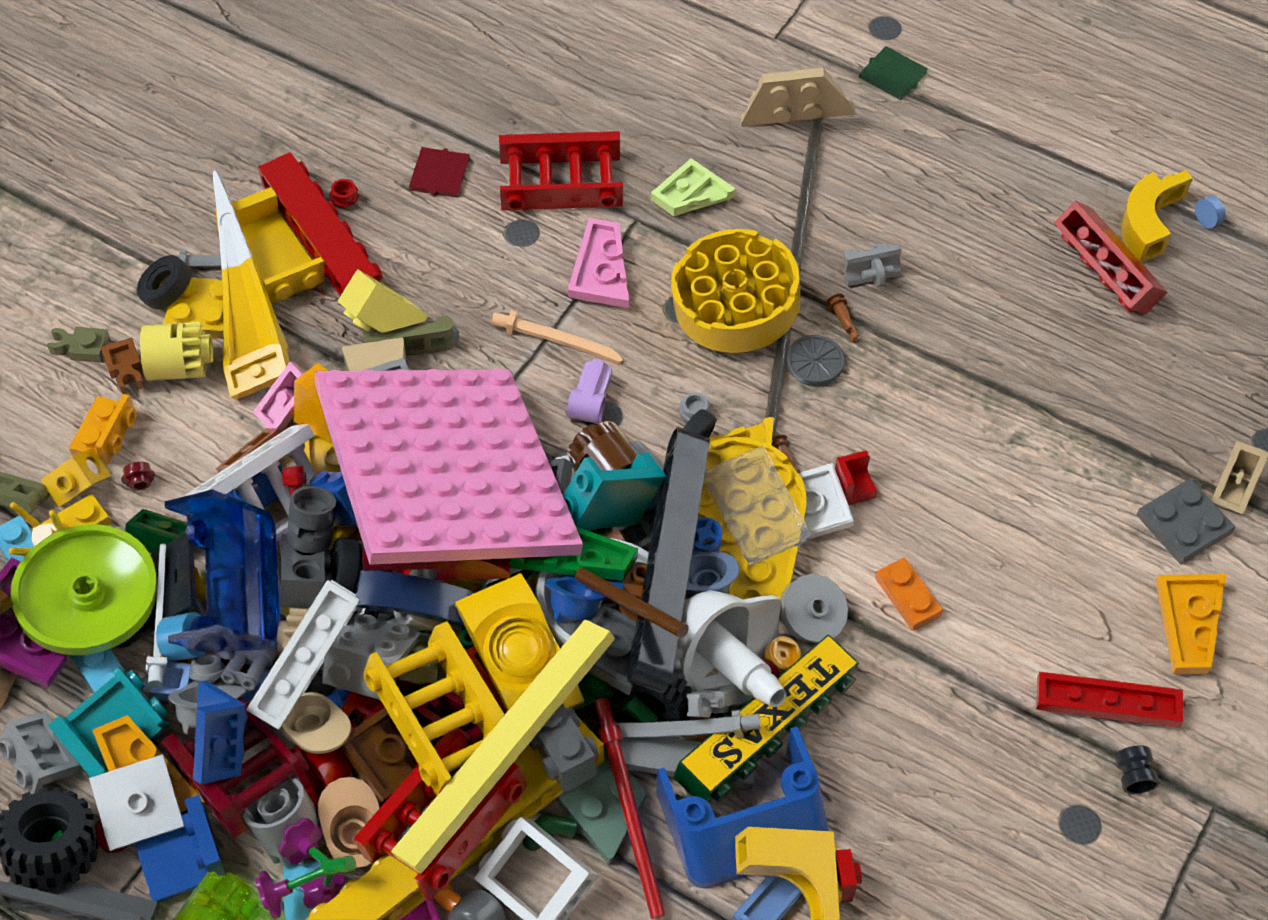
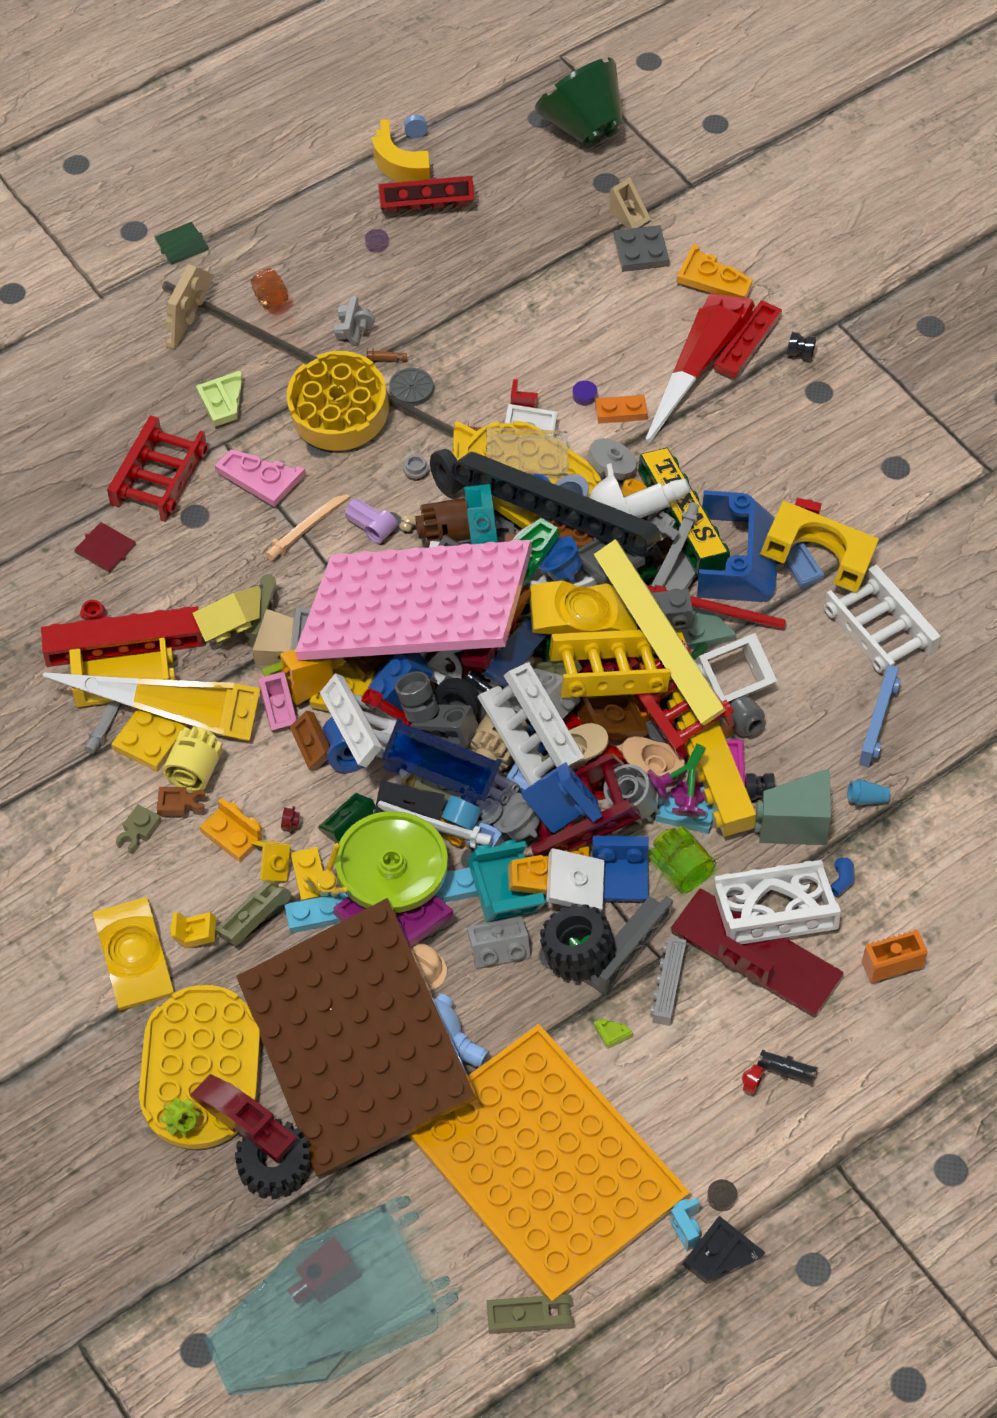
camera: 65 degrees left, 0 degrees up
(171, 290) = (102, 744): black tyre -> none
(632, 603) = (592, 526): reddish brown bar -> none
(864, 167) = (269, 289): none -> clear orange gear
(910, 543) = (584, 392): none -> dark purple tile
(1012, 243) = (376, 240): none -> clear purple tile
(1092, 649) = (711, 331): none -> red plate

